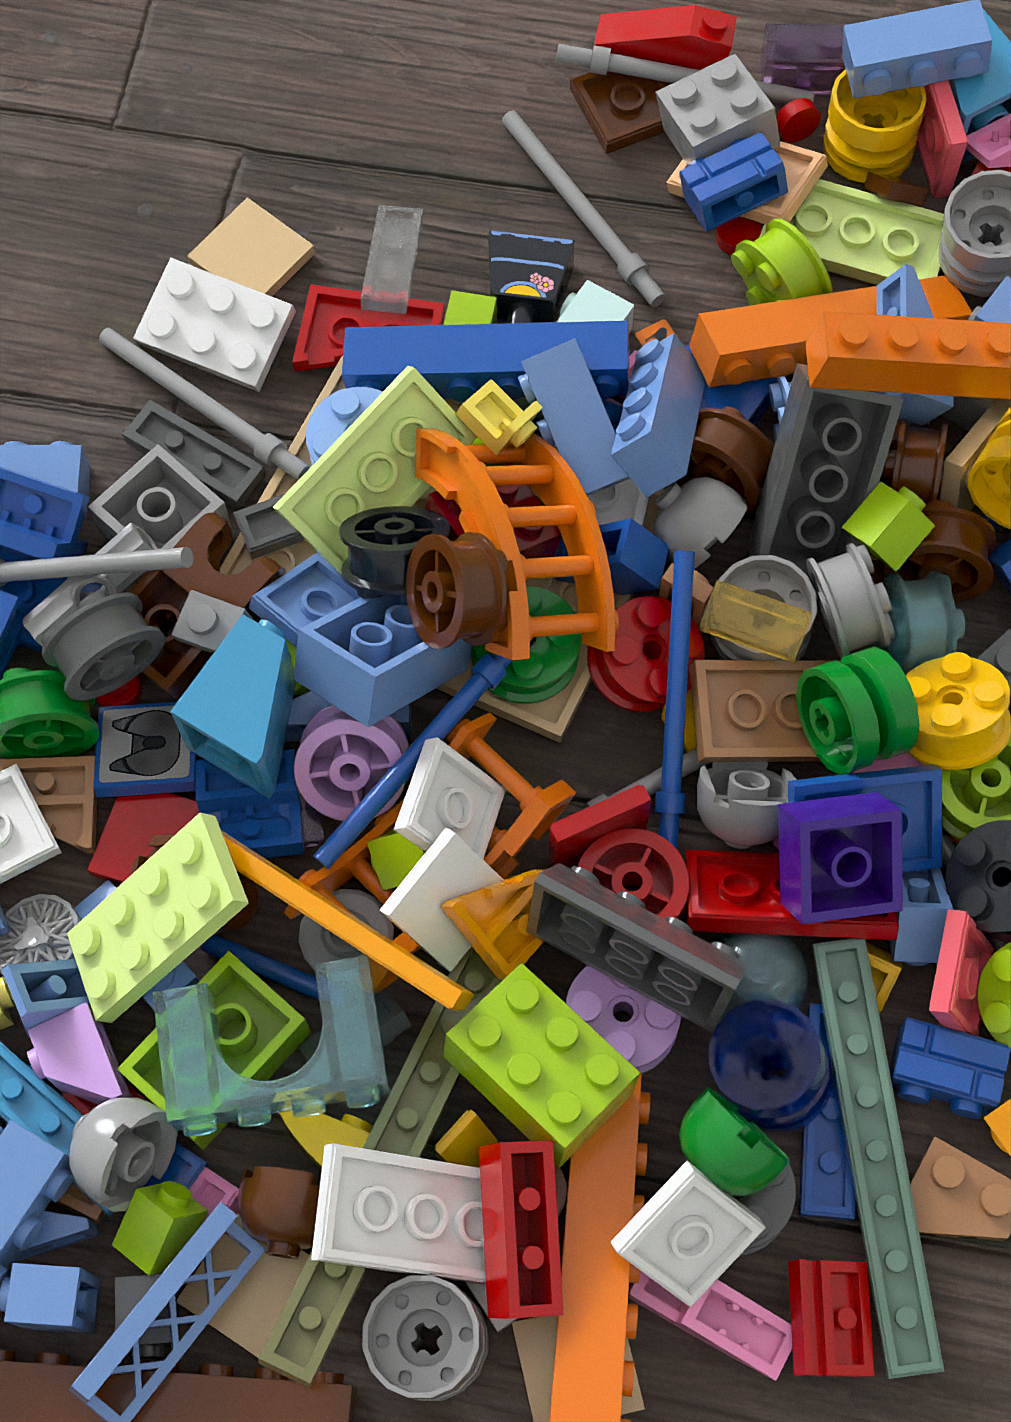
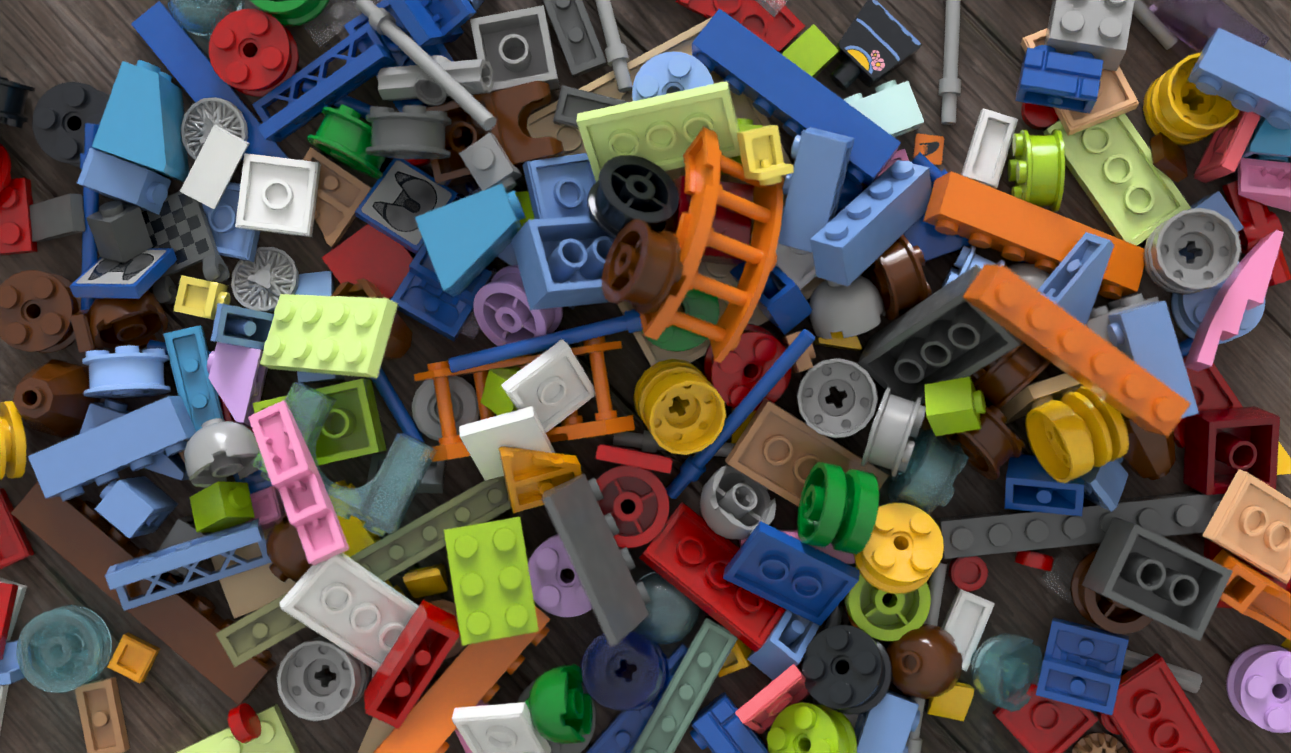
camera: 30 degrees right, 20 degrees up
(239, 1094) = (298, 482): none -> bright pink slope
(348, 927) = (431, 415): light orange tile -> none
(605, 736) = (690, 420): none -> yellow wheel
(712, 284) = (989, 147): none -> white tile
(721, 559) = (838, 341): none -> yellow slope
(755, 621) = (821, 407): clear yellow tile -> none
(798, 120) = (1147, 55): red tile -> none
(840, 857) = (753, 591): dark purple brick -> none

